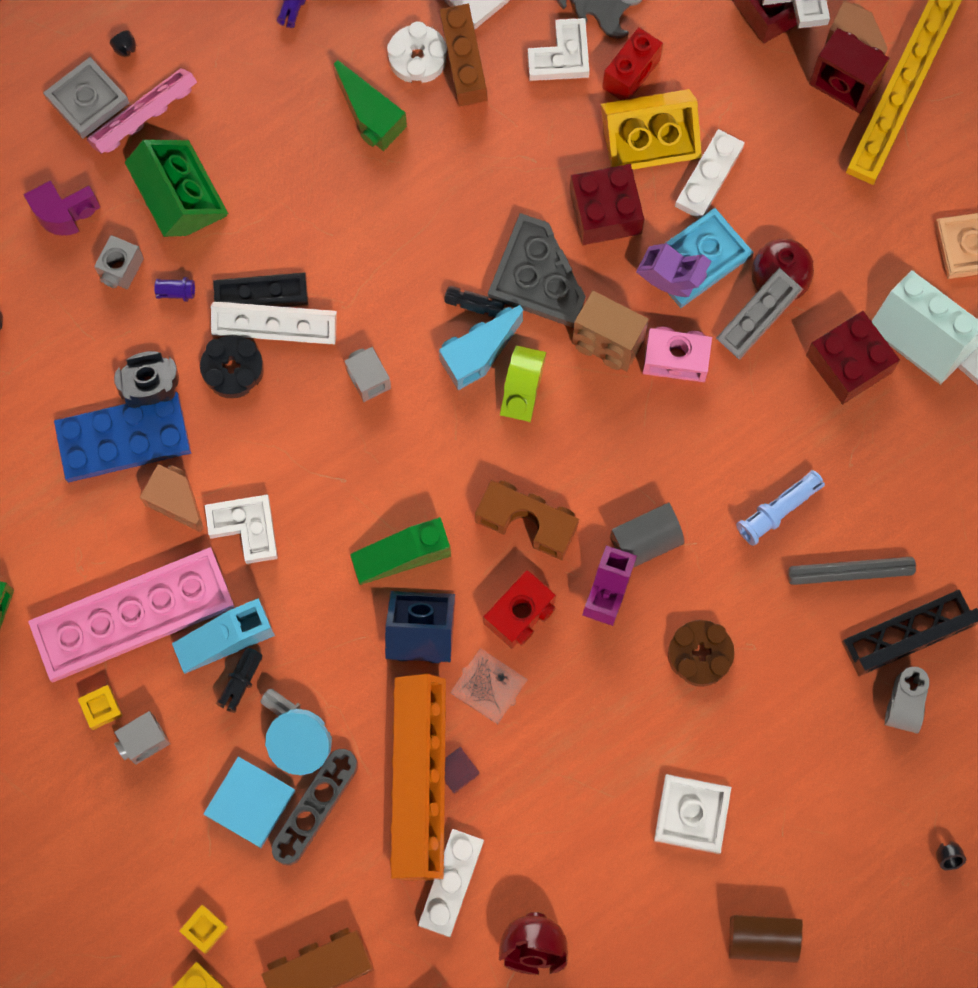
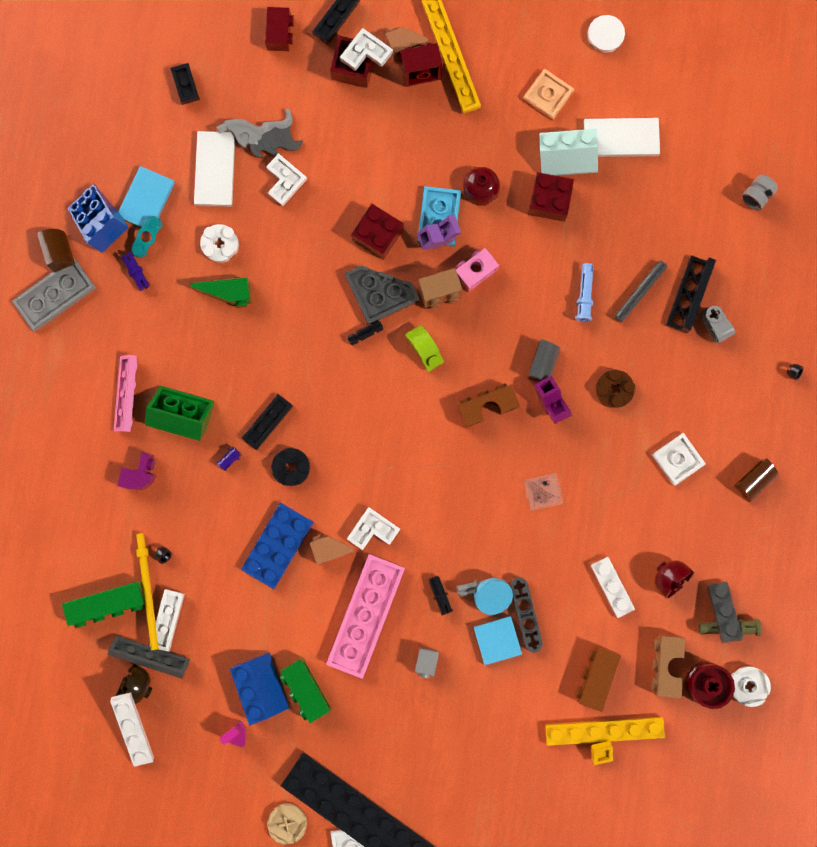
camera: 45 degrees left, 10 degrees up
(86, 97) = (92, 412): light grey plate -> none
(100, 707) = (395, 667): yellow plate -> none
(116, 251) = (184, 469): light grey brick -> none
(123, 43) = (82, 371): black hinge -> none
(159, 388) = (272, 510): plate -> none
(203, 929) = (534, 710): yellow plate -> none
(224, 636) = (415, 586): medium azure slope -> none
(273, 322) = (289, 430): white plate -> none
(367, 373) = (353, 411): light grey brick -> none
(402, 551) = (450, 473): green slope -> none
(418, 778) = (557, 560): orange brick -> none
(419, 626) = (491, 496): dark blue slope -> none
(459, 770) = (567, 539): tile -> none
(463, 55) = (243, 223): dark orange arch -> none
(474, 353) = (390, 356): medium azure slope -> none
(526, 592) = (522, 458): red brick -> none
(632, 65) = (322, 155): red brick -> none
(652, 129) = (361, 177): yellow slope -> none
(709, 174) = (406, 172): white plate -> none
(759, 313) = (493, 216): light grey tile -> none

